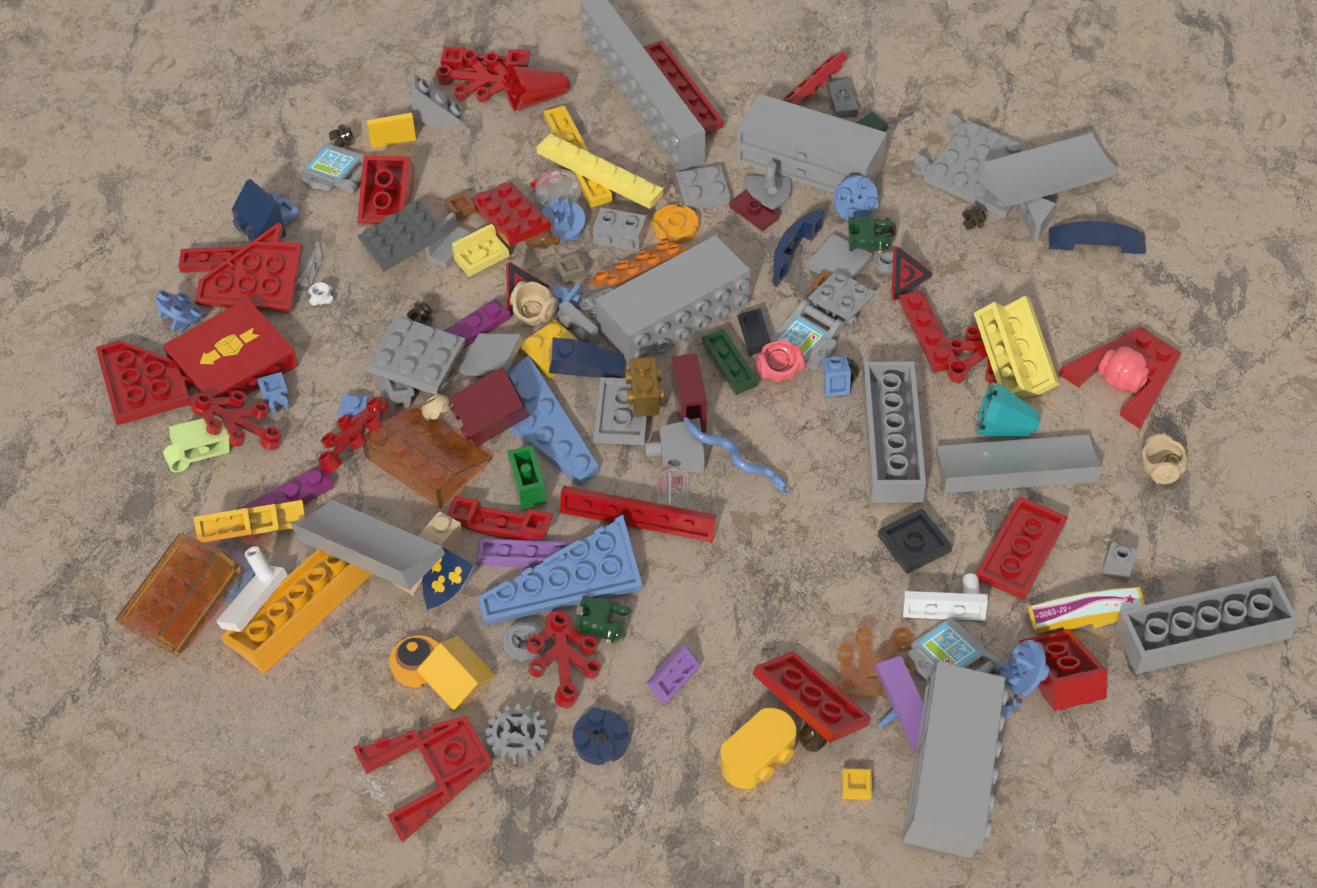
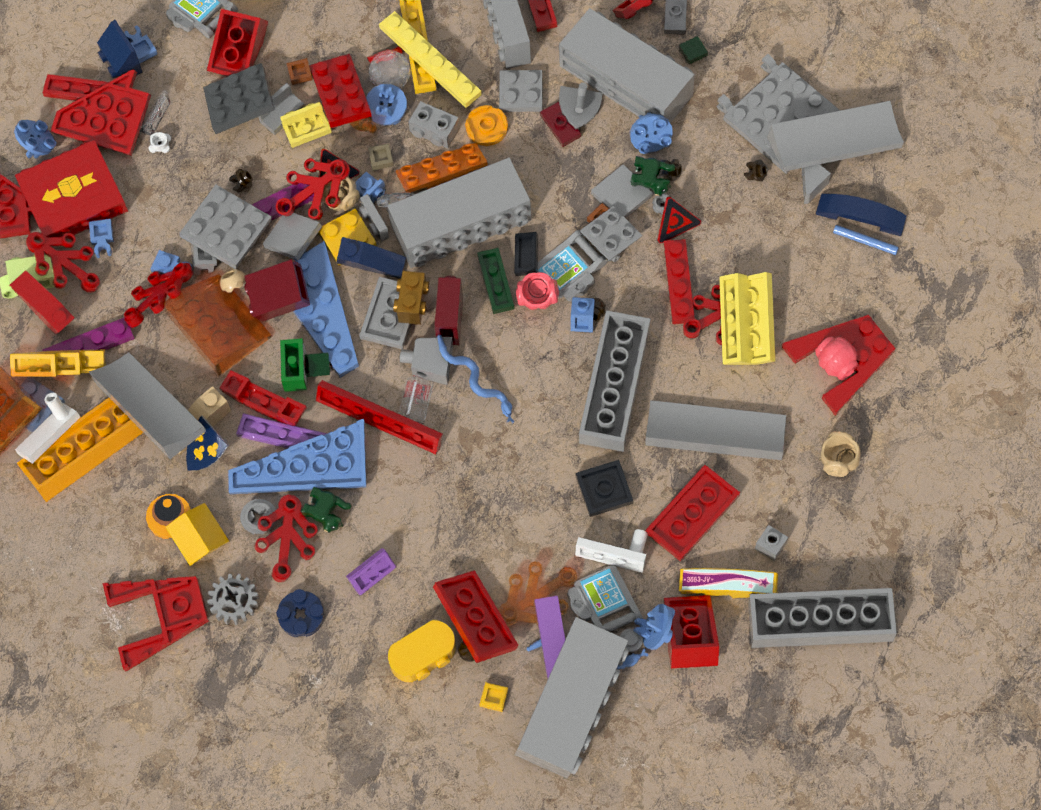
camera: 15 degrees right, 15 degrees up
(221, 463) = (42, 302): none -> red slope
(508, 299) = (315, 187): none -> red plant
(554, 473) = (317, 364): none -> dark green tile
(805, 227) = (603, 153): dark blue slope -> none
(1006, 414) = (718, 383): teal cone -> none
(1111, 261) = (865, 240): none -> medium blue bar

